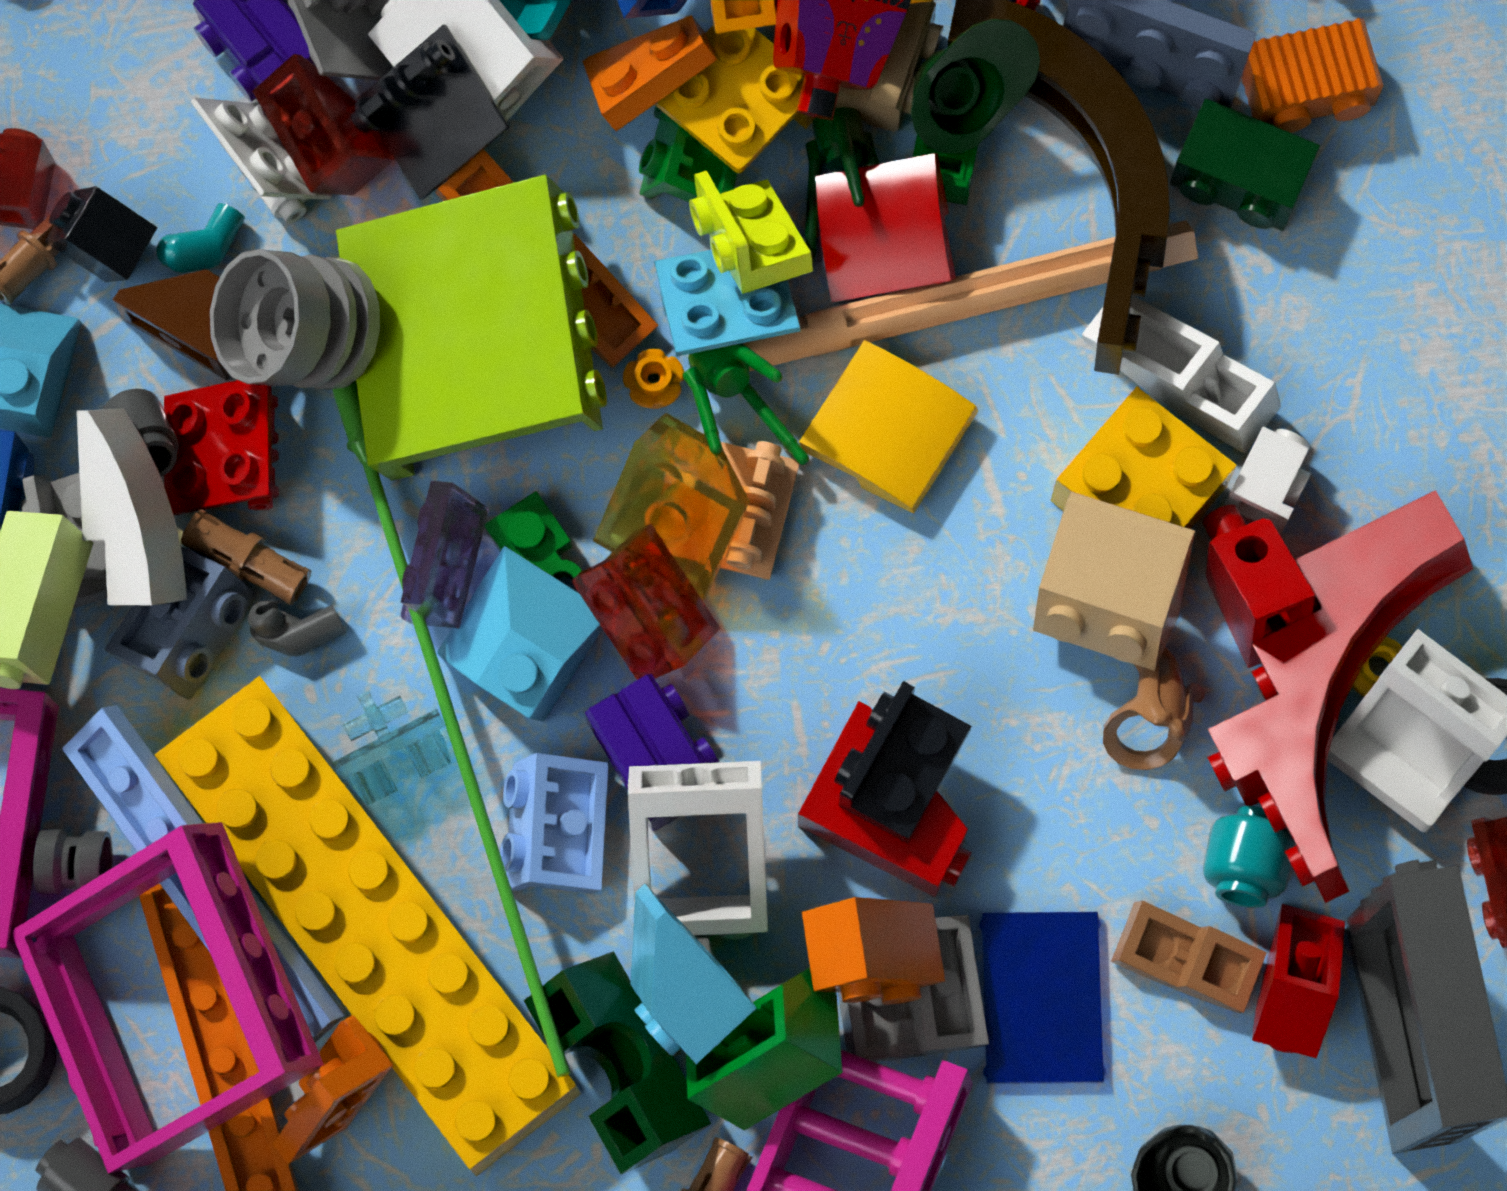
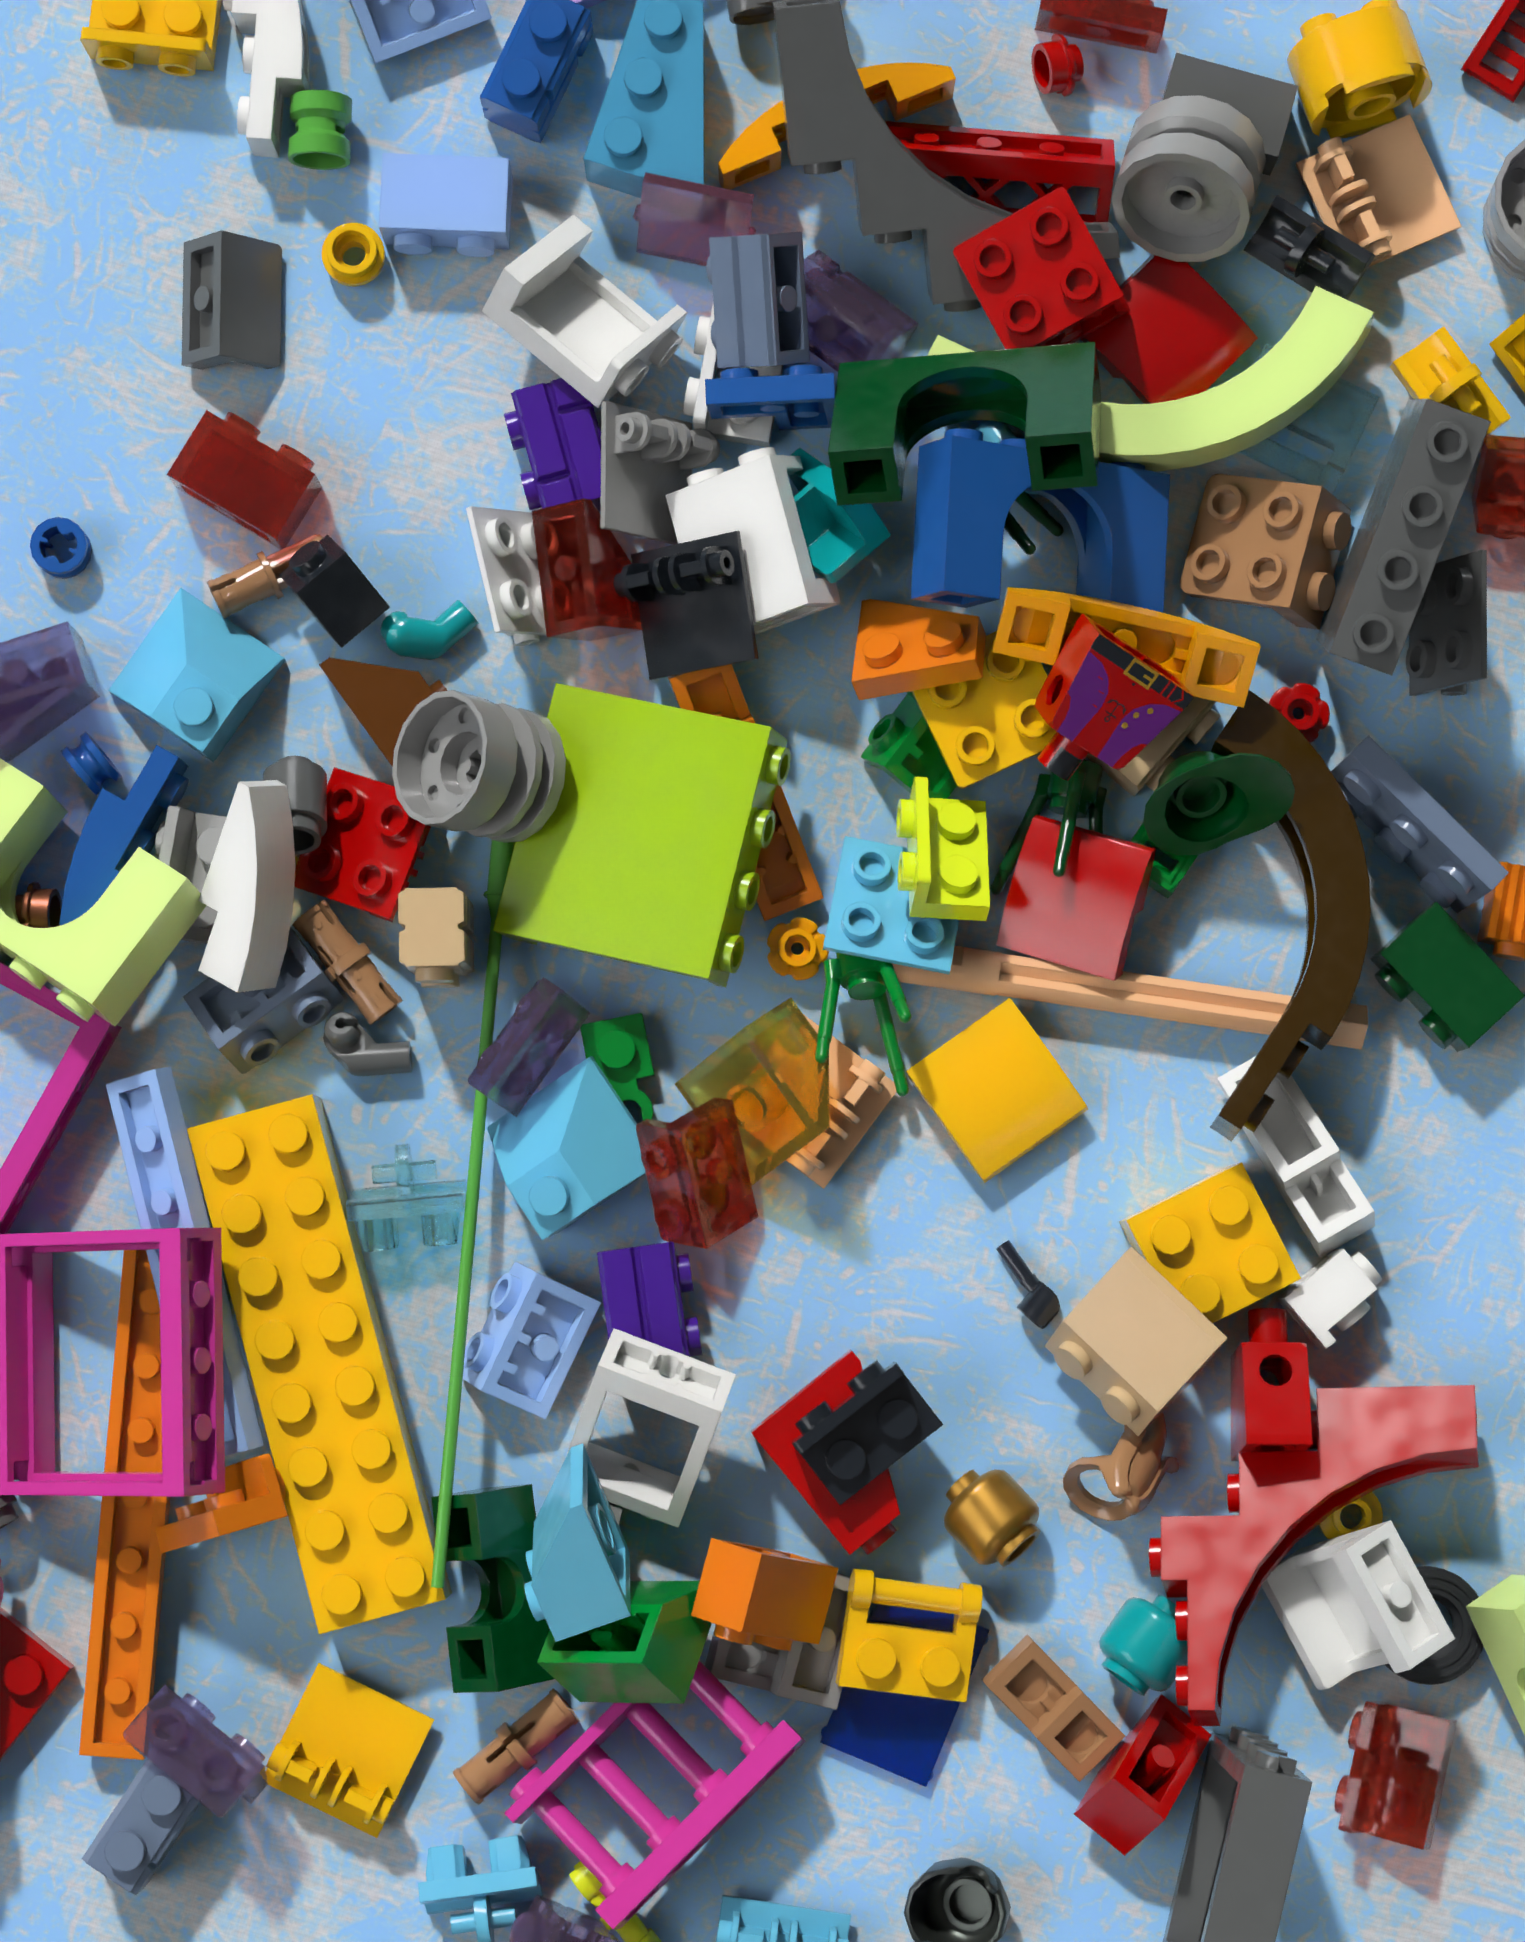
camera: 20 degrees right, 10 degrees up
(70, 860) = (77, 1188): dark grey wheel -> none
(317, 489) = (436, 935): none -> tan brick
(1012, 593) = (1041, 1302): none -> black hand
(1032, 964) = (908, 1657): none -> yellow plate
(1053, 803) = (991, 1517): none -> pearl gold head

